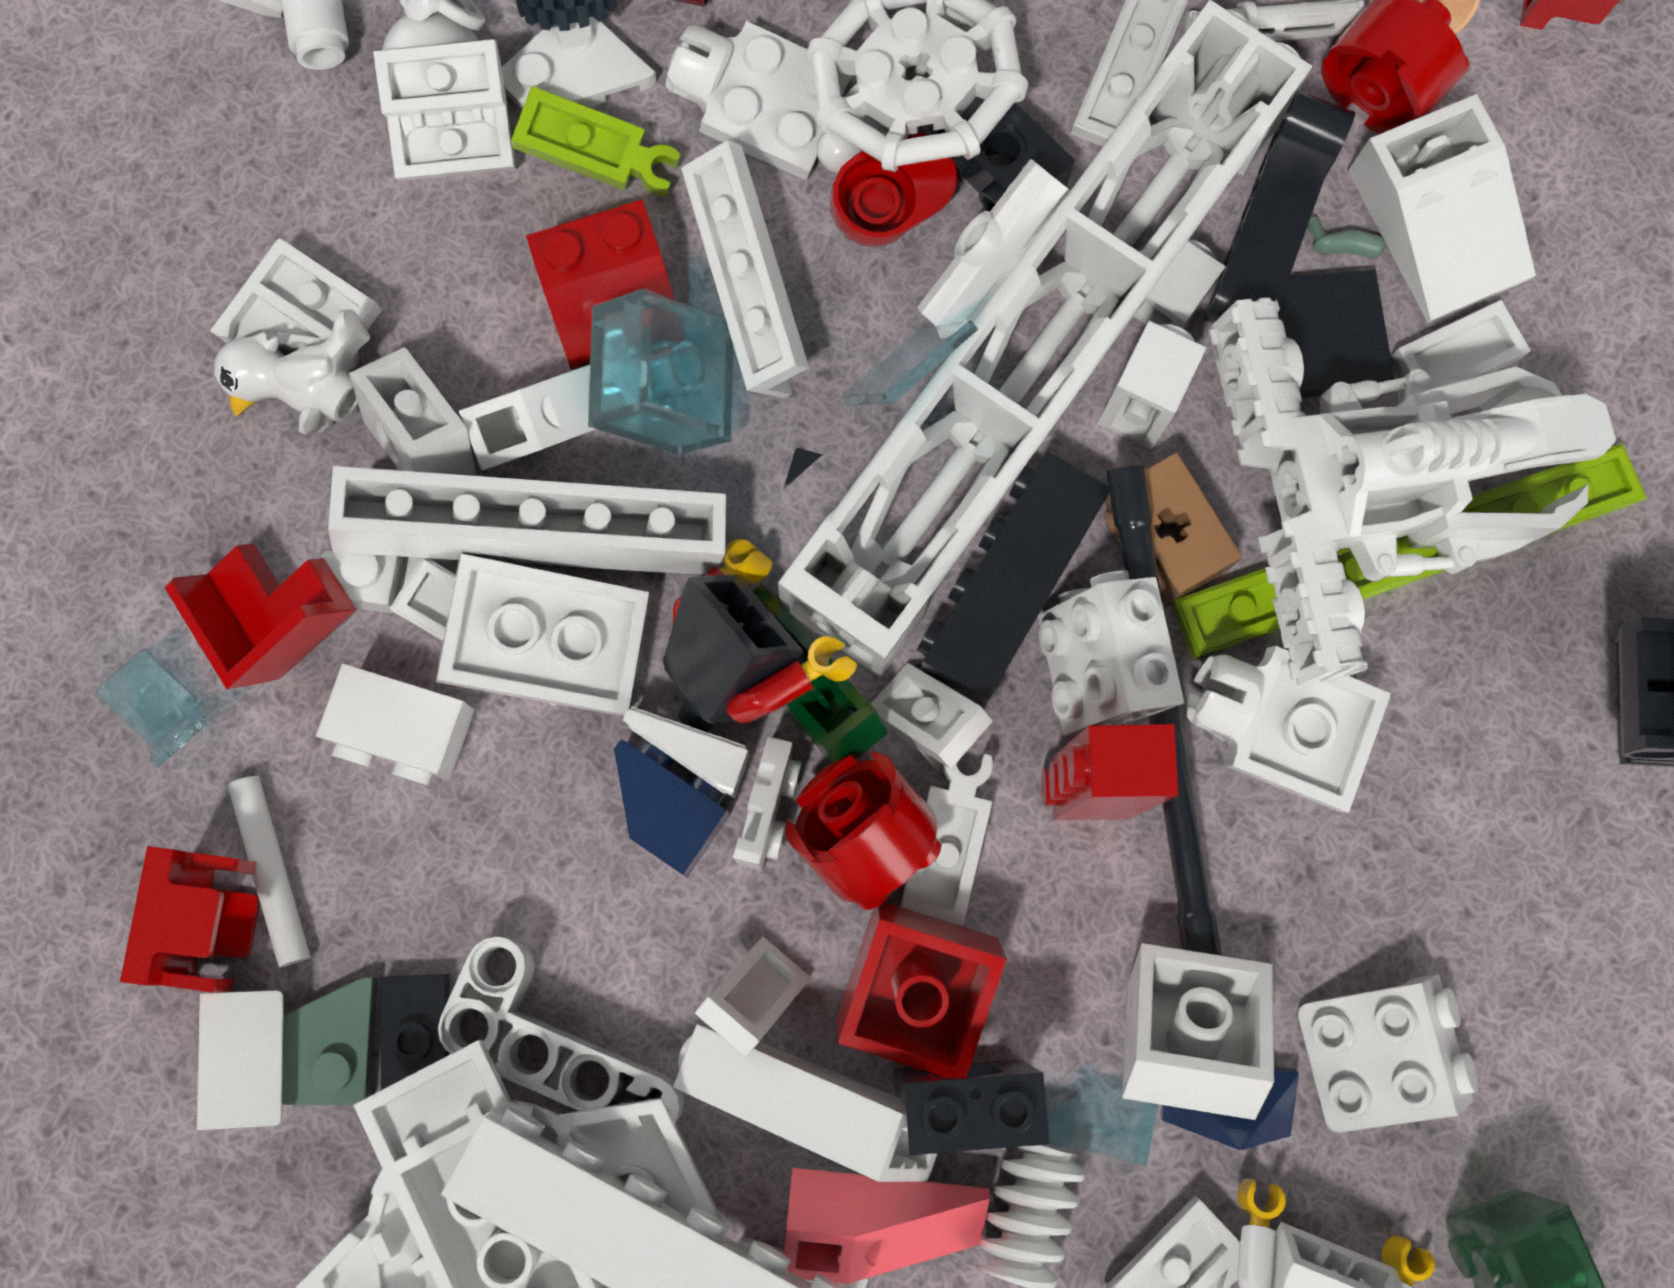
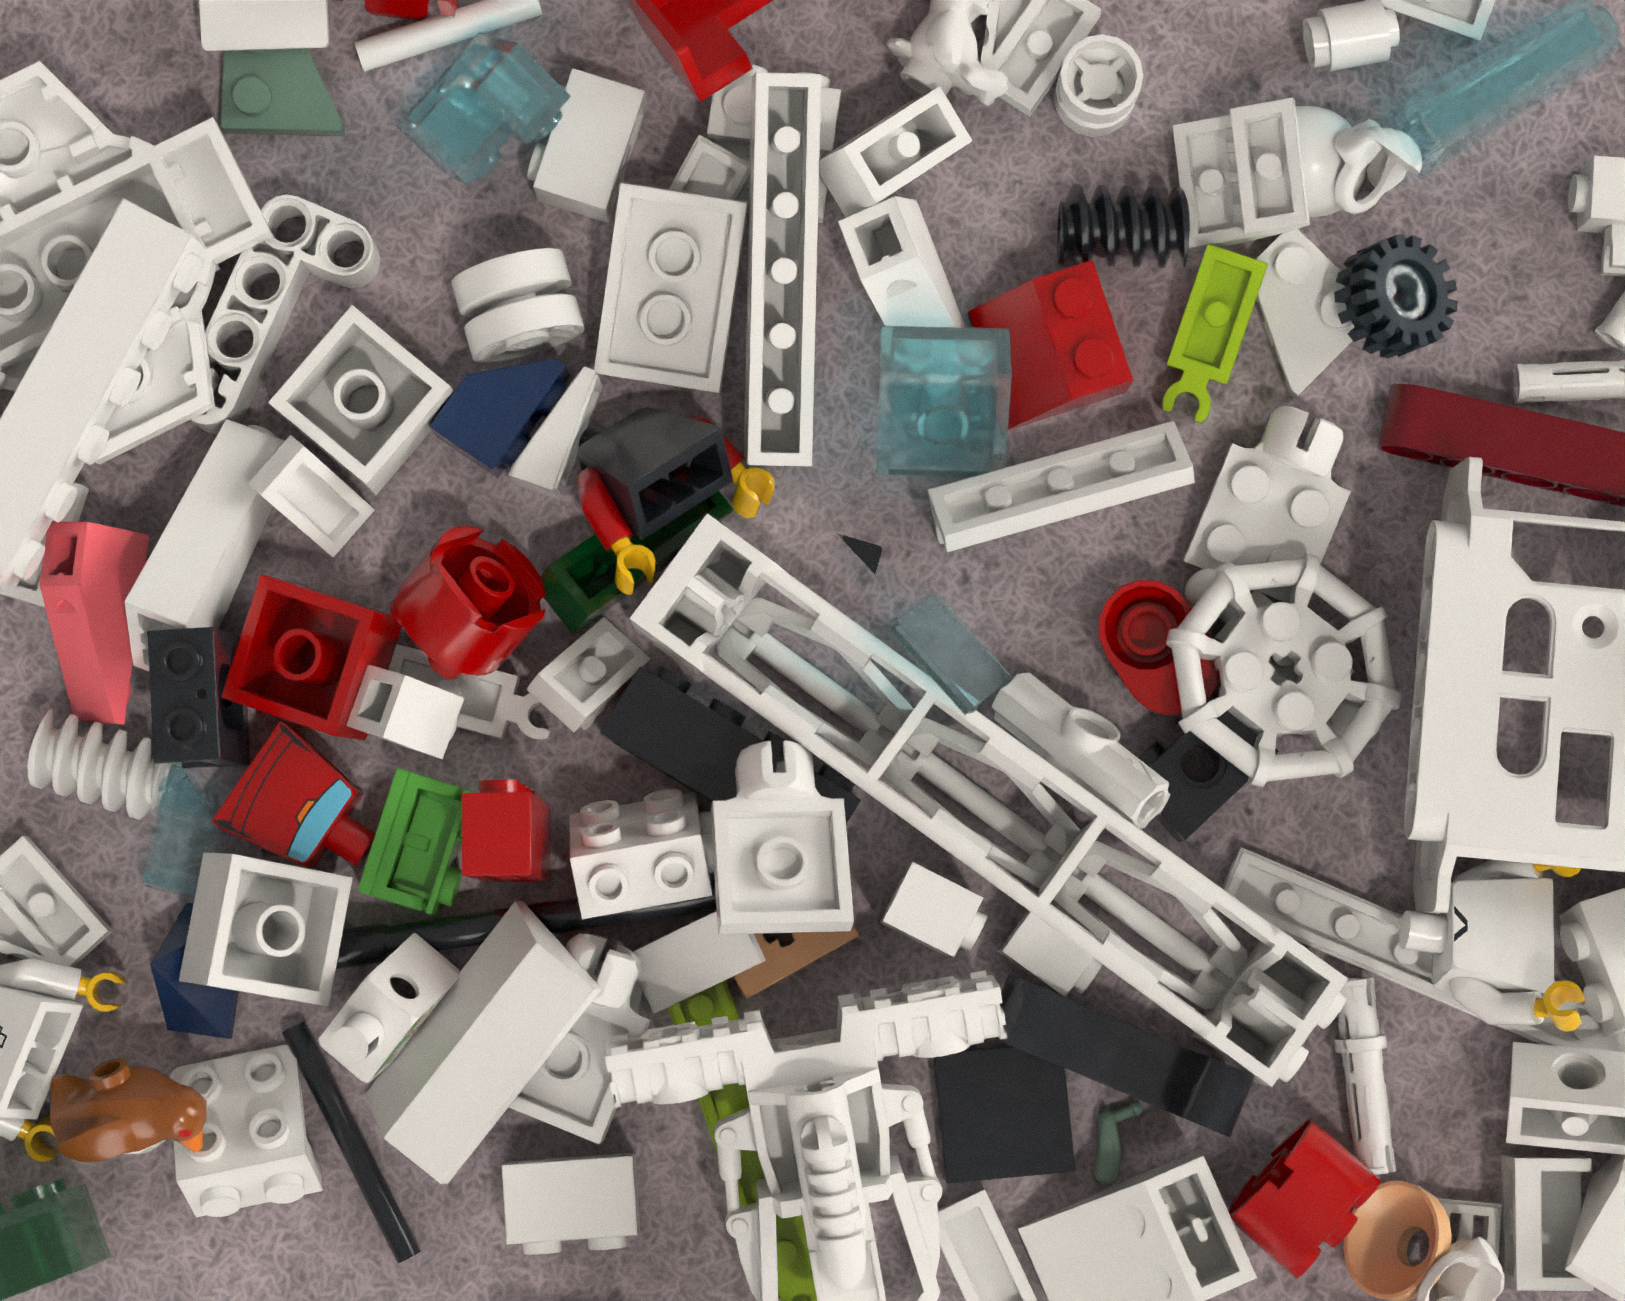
camera: 90 degrees right, 5 degrees up
(345, 829) = (479, 103): none -> clear light blue brick
(354, 237) = (1098, 85): none -> white wheel
(410, 1024) = (296, 168): black plate -> none
(489, 214) = (1123, 225): none -> black piece
(558, 790) = (517, 305): none -> white wheel
(652, 945) = (362, 399): none -> white brick
(762, 832) = (468, 505): white wing -> none
(977, 890) = (405, 711): none -> white brick
(1065, 1006) = (296, 803): none -> red torso
(1098, 880) = (416, 844): none -> bright green hinge
(1110, 509) = (780, 849): none -> white plate
(1207, 600) = (693, 961): none -> white slope
(1292, 913) = (379, 1021): none -> white torso
(1301, 811) = (481, 1044): none -> white slope
(1389, 946) = (351, 1142): none -> black bar
(1392, 1174) = (123, 1112): none -> dark orange animal
(1437, 726) = (571, 1201): none -> white brick

